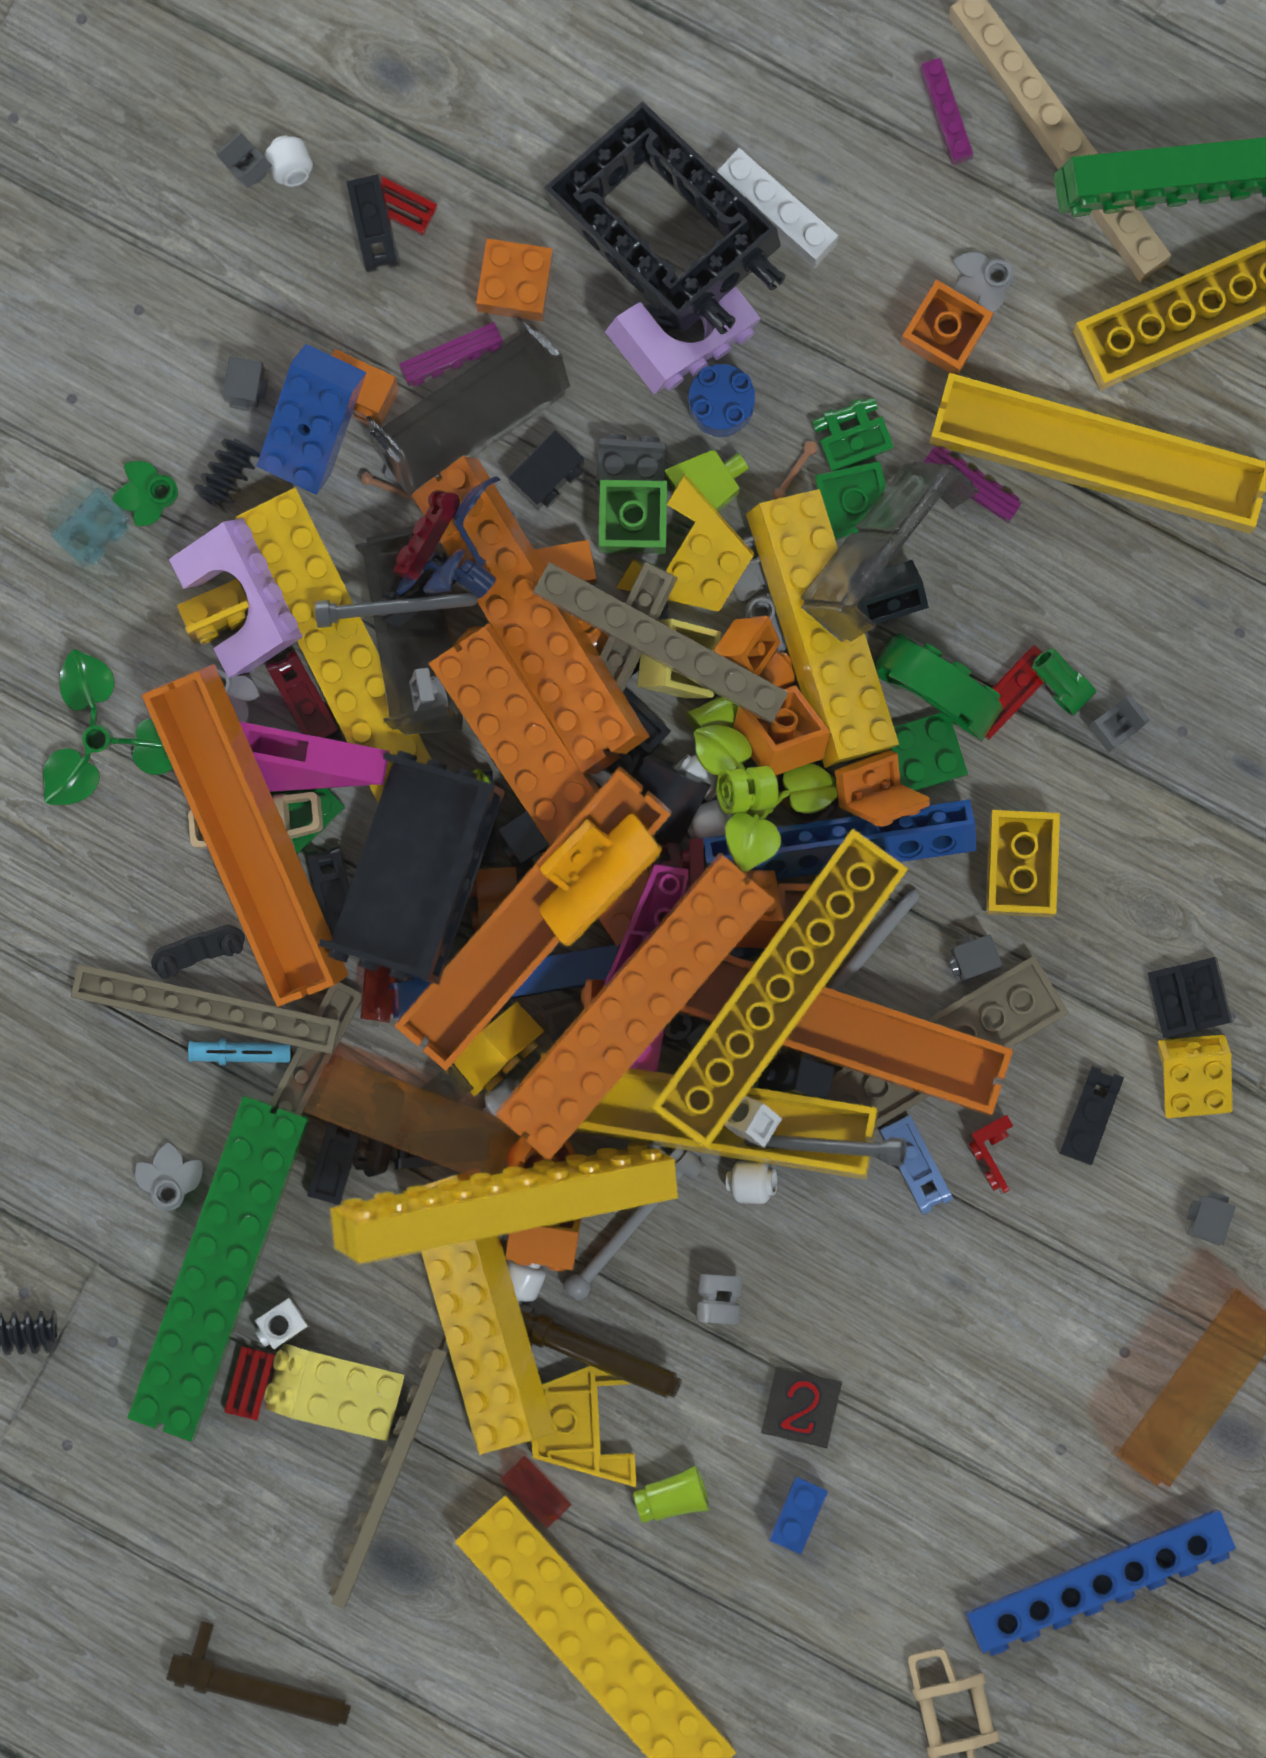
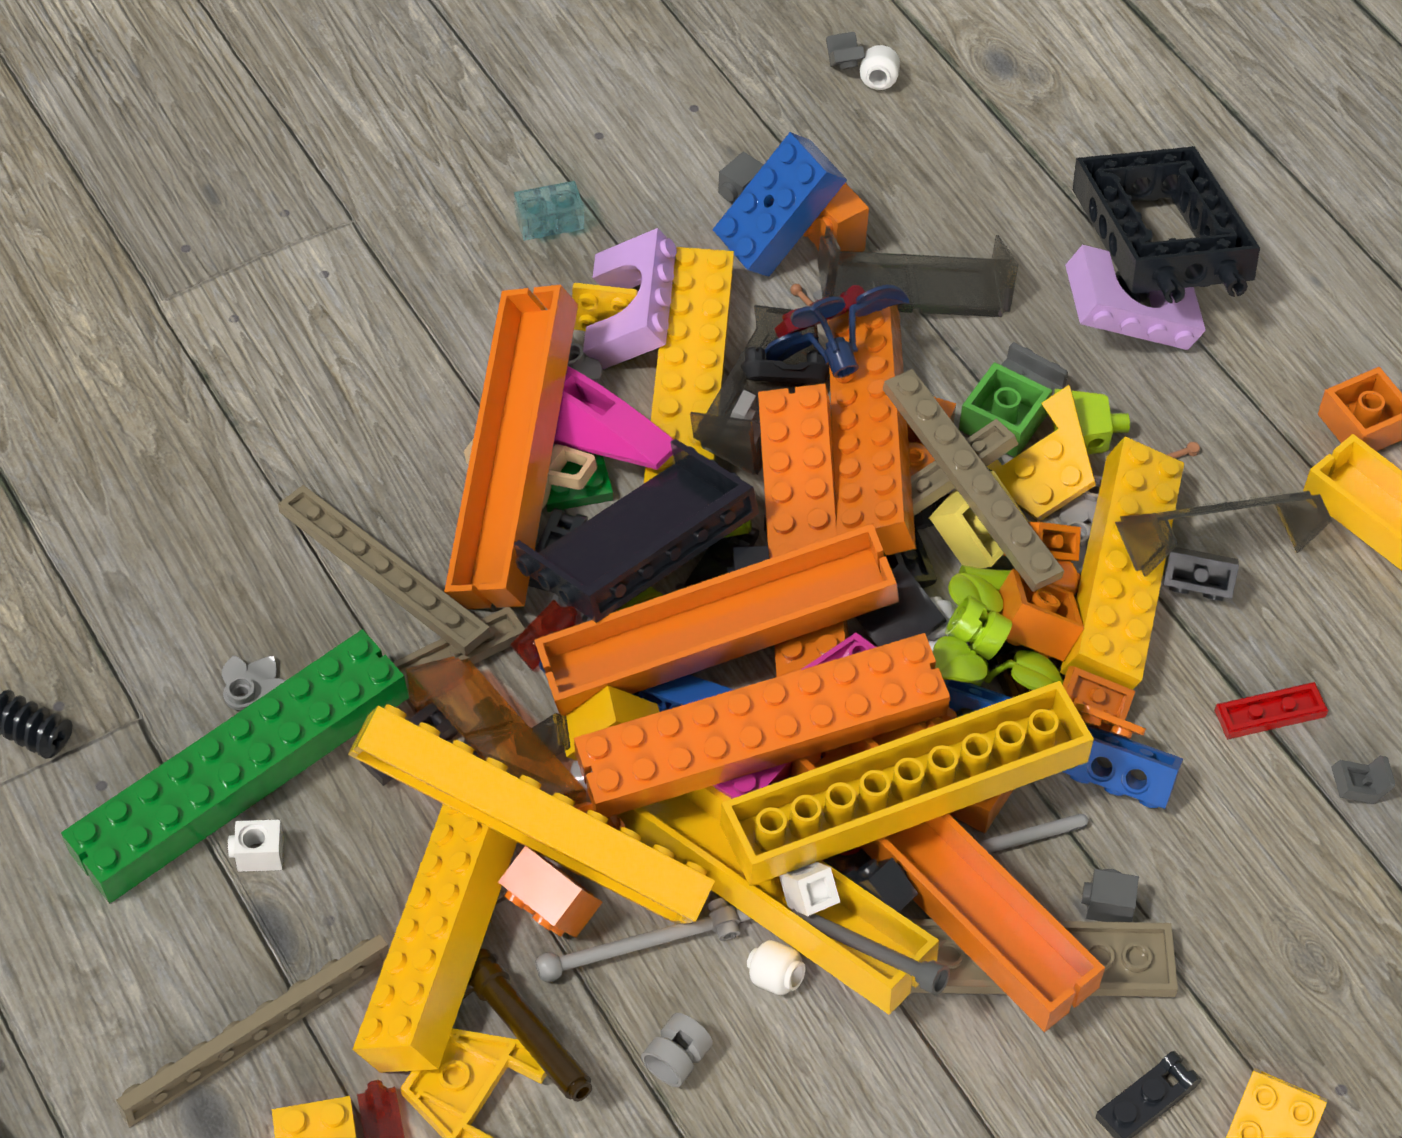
camera: 30 degrees right, 30 degrees down
(68, 775) = (403, 359): green plant -> none
(140, 493) = (612, 215): green plate -> none
(197, 947) = (409, 527): black piece -> none
(198, 1052) = (376, 614): medium azure pin -> none
(226, 473) = (687, 222): black piece -> none
(241, 1412) = (187, 878): red tile -> none
(302, 697) = (635, 388): dark red plate -> none
(330, 613) = (697, 333): dark grey piece -> none
(333, 1392) = (264, 926): light yellow bracket -> none
(372, 221) = (920, 129): black plate -> none
(415, 198) = (954, 136): red tile -> none
(451, 354) = (923, 242): magenta piece -> none
(514, 280) = (1012, 212): orange brick -> none
(526, 1280) = (506, 929): white head -> none
(547, 471) = (951, 349): black piece -> none
(593, 873) = (793, 586): light orange bracket -> none
(721, 400) = (1135, 371): blue brick -> none
(793, 220) = (1274, 285): white brick -> none
(850, 495) = (1210, 485): green plate -> none
(857, 443) = (1237, 453): green plate -> none
(918, 1165) = (946, 1042): medium blue plate -> none
(928, 752) = (1168, 715): green plate -> none
(939, 684) = (1215, 657): green brick -> none
(989, 494) = (1338, 556): magenta piece -> none
(994, 1133) = (1030, 1051): red bracket -> none
(1022, 863) = (1203, 839): yellow brick -> none
(1068, 686) = (1329, 728): green piece -> none
(1190, 997) = (1308, 1047): black slope -> none

